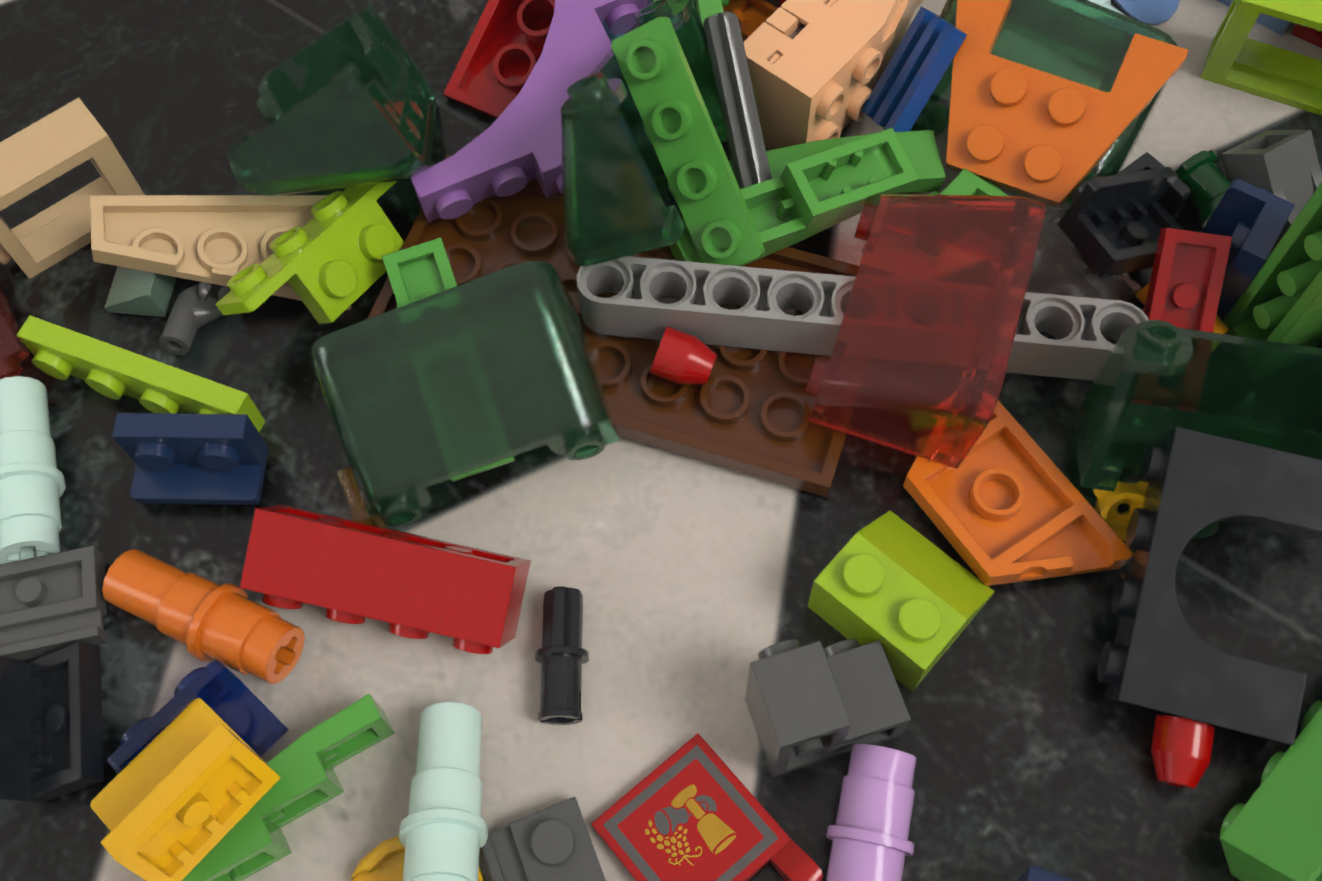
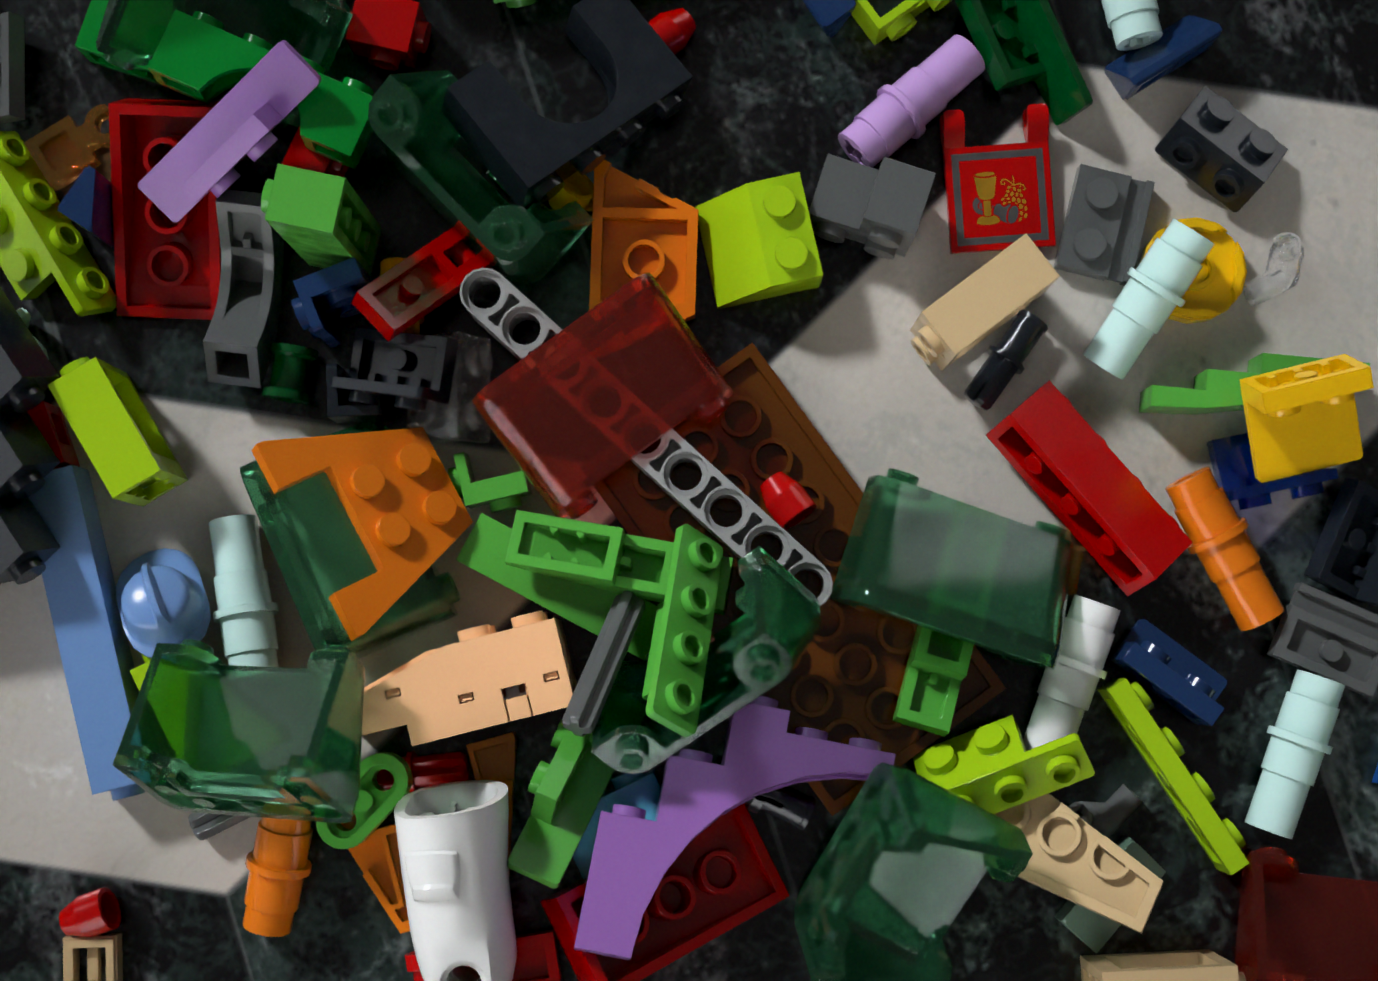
camera: 145 degrees left, 20 degrees up
(292, 400) = (1080, 664): none -> white piece
(624, 671) = (982, 303): none -> tan window
(913, 71) = (438, 617): blue tile -> none

